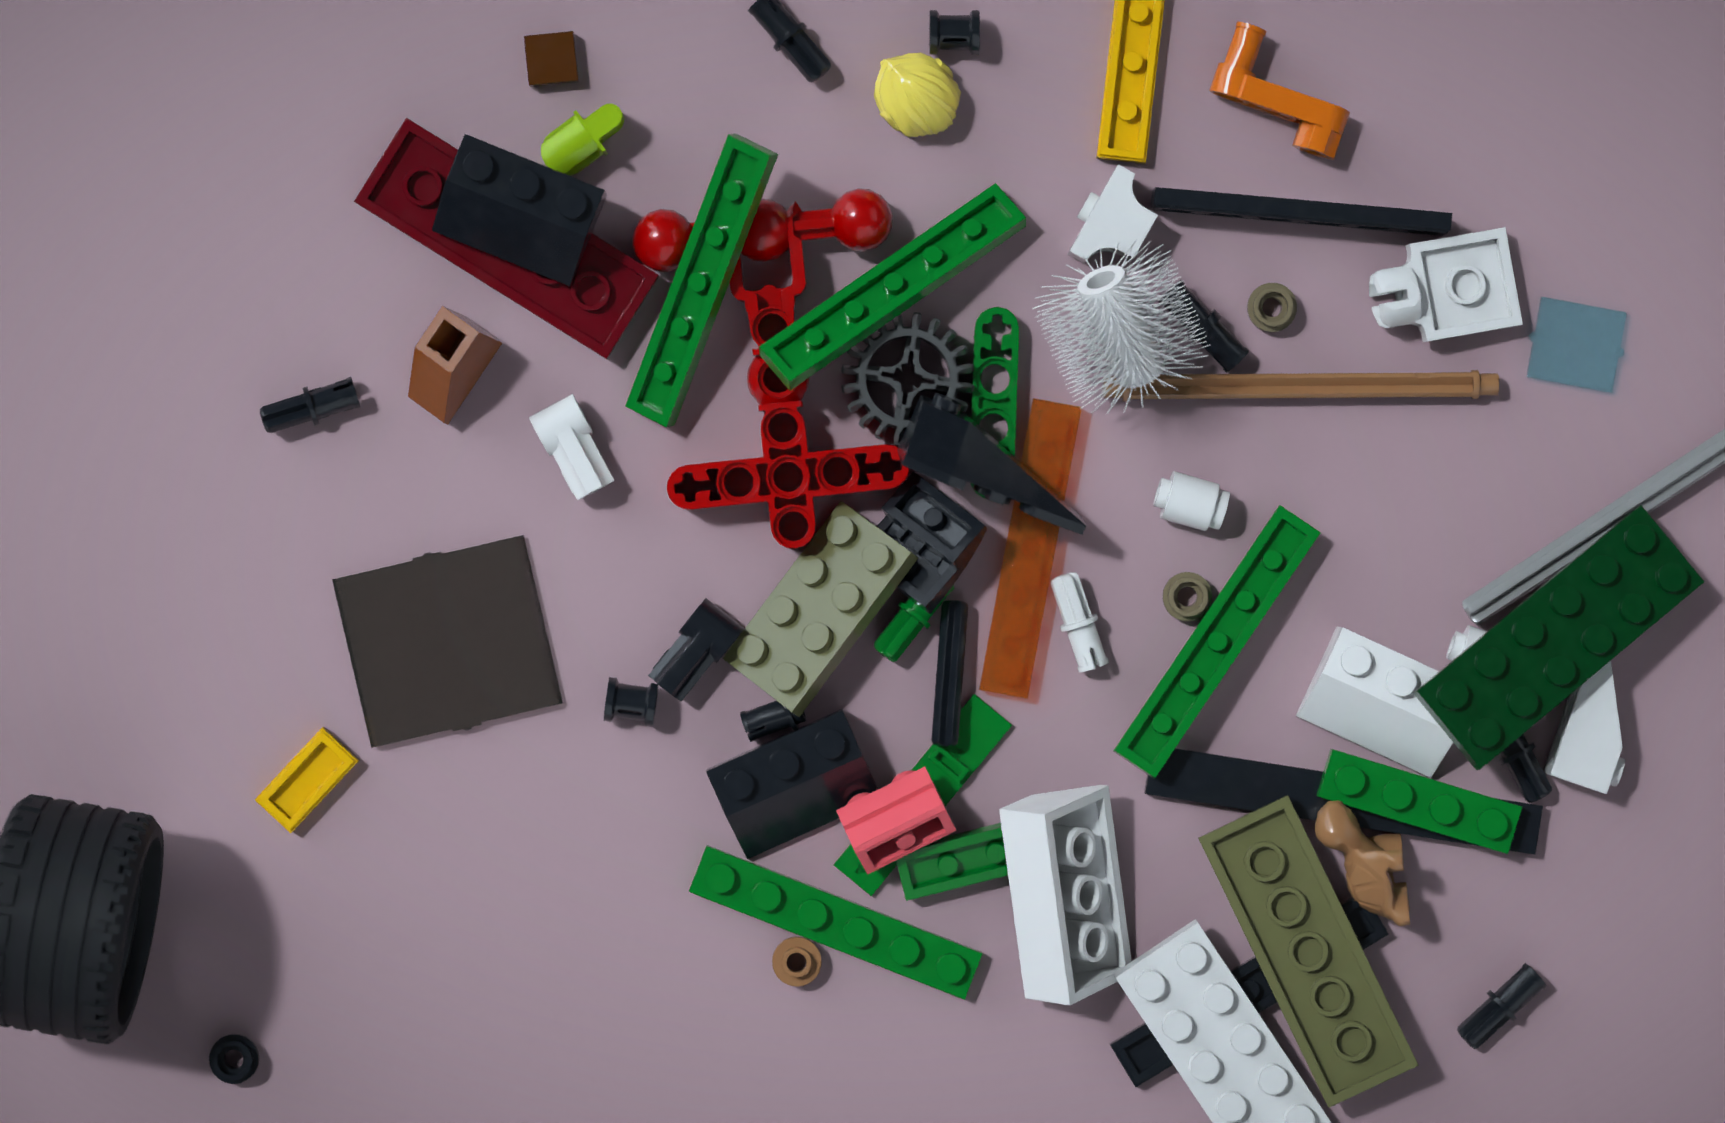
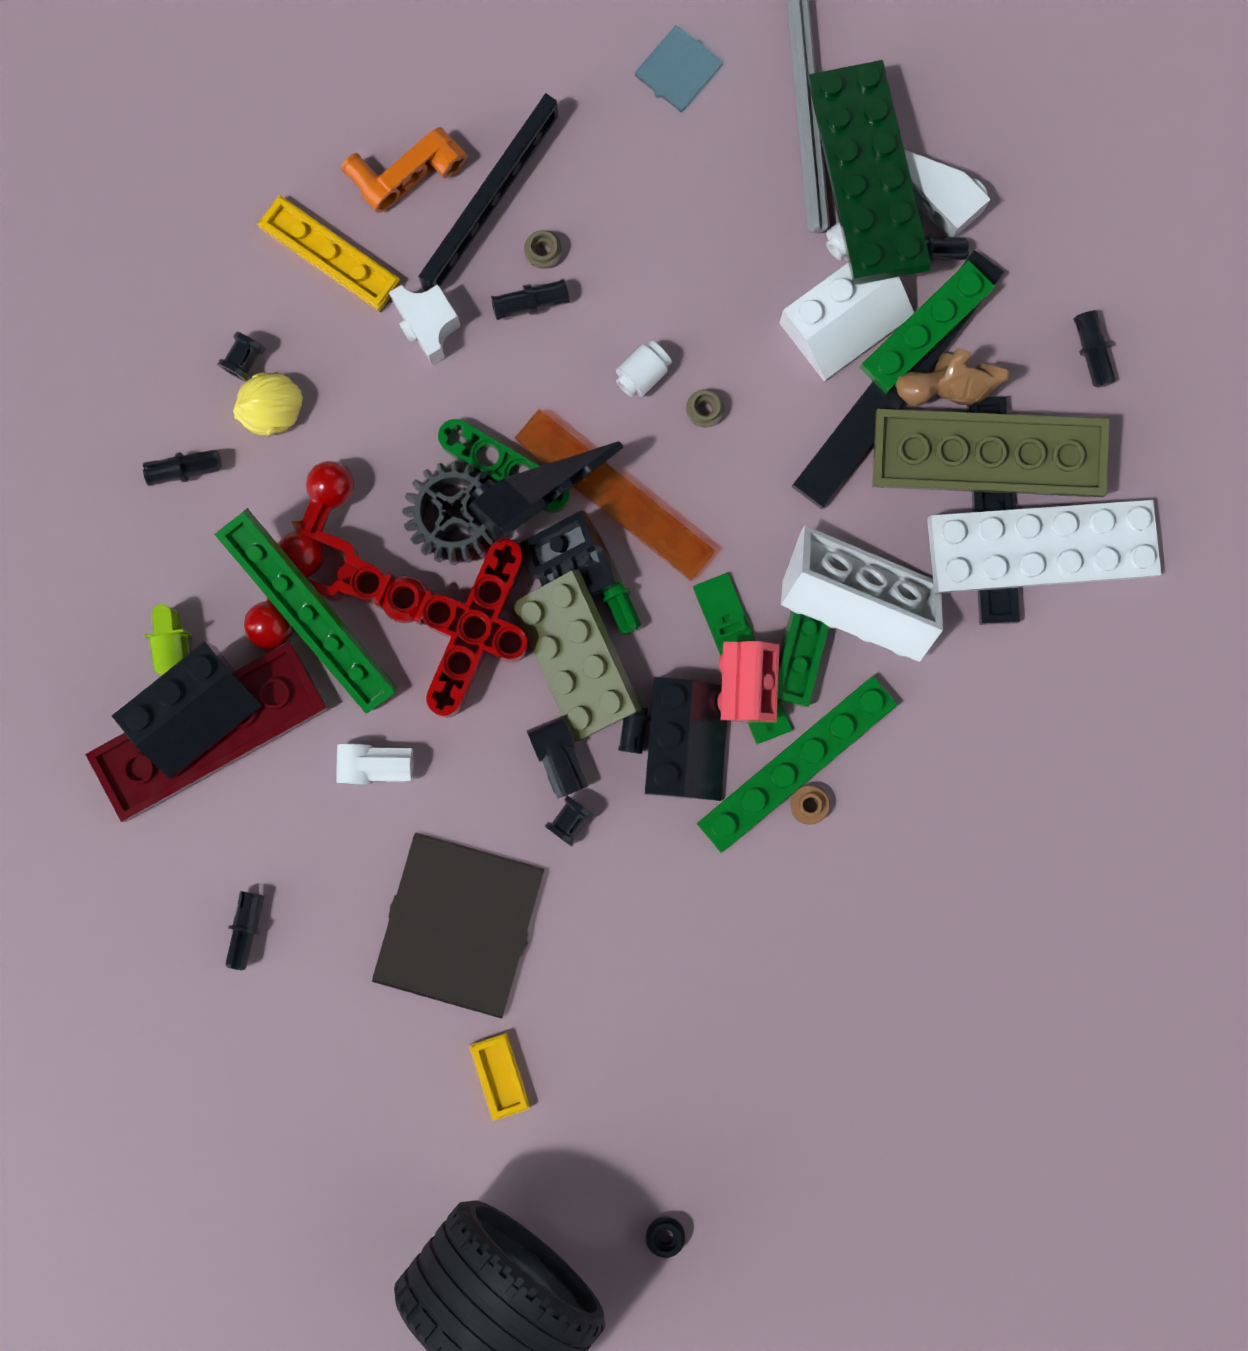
camera: 60 degrees left, 5 degrees down
(449, 363) = (267, 817): dark orange slope -> none
(551, 58) = (105, 635): reddish brown tile -> none
(892, 286) = (385, 487): green plate -> none
(949, 673) = (669, 593): black axle -> none
(1078, 621) = (682, 488): white axle -> none
(1121, 326) = (497, 342): white piece -> none
(1216, 641) = (747, 403): green plate -> none
(1316, 385) = (604, 259): medium nougat piece -> none
(1451, 287) = (594, 125): white plate -> none

